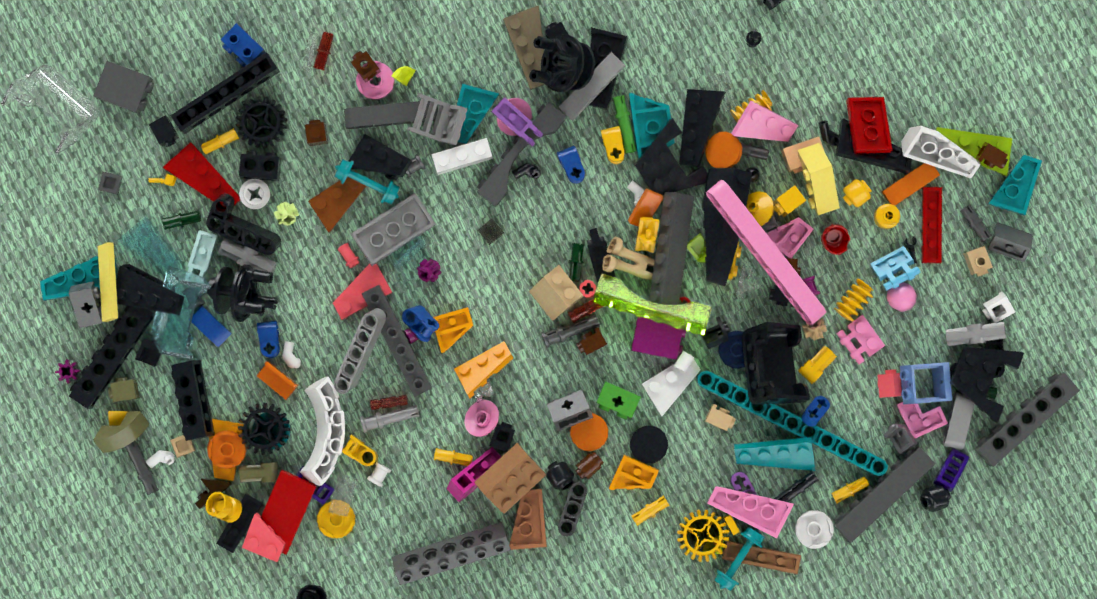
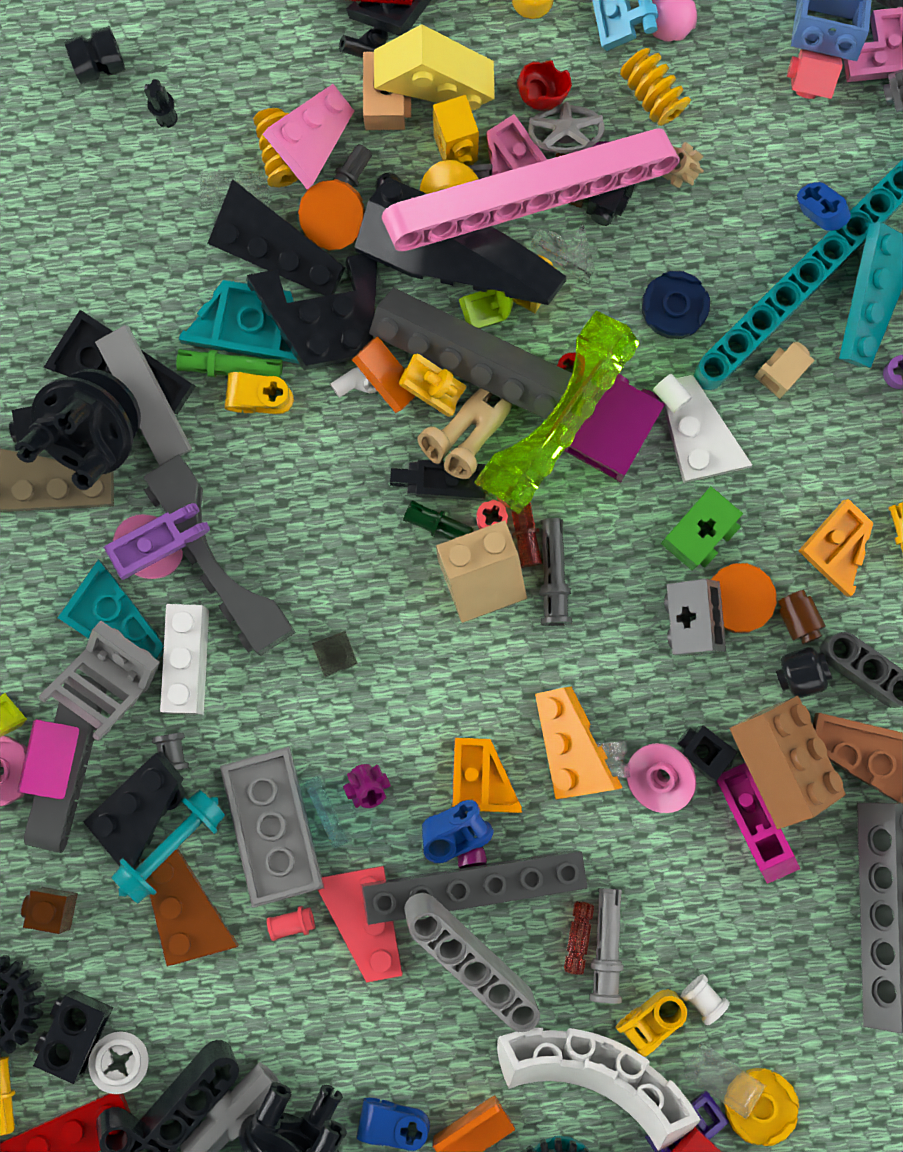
camera: 70 degrees left, 5 degrees down
(286, 213) = (174, 1015): yellowish green gear -> none
(288, 356) = (436, 1097): white arm -> none
(389, 106) = (48, 759): none -> dark pink panel
(453, 457) = (714, 852): yellow axle -> none
(527, 169) = (250, 554): black arm -> none
(571, 161) = (260, 475): blue piece -> none
(591, 342) = (587, 541): reddish brown brick -> none
(648, 444) = (793, 503): black tile -> none
(717, 334) = (644, 324): black bracket -> none
(771, 364) = (722, 253): black windscreen -> none
(814, 259) = (566, 128): none -> light grey wheel
(814, 368) = (746, 188): yellow piece -> none
(857, 193) = (478, 26): yellow head -> none
(866, 337) = (719, 93): bright pink plate -> none

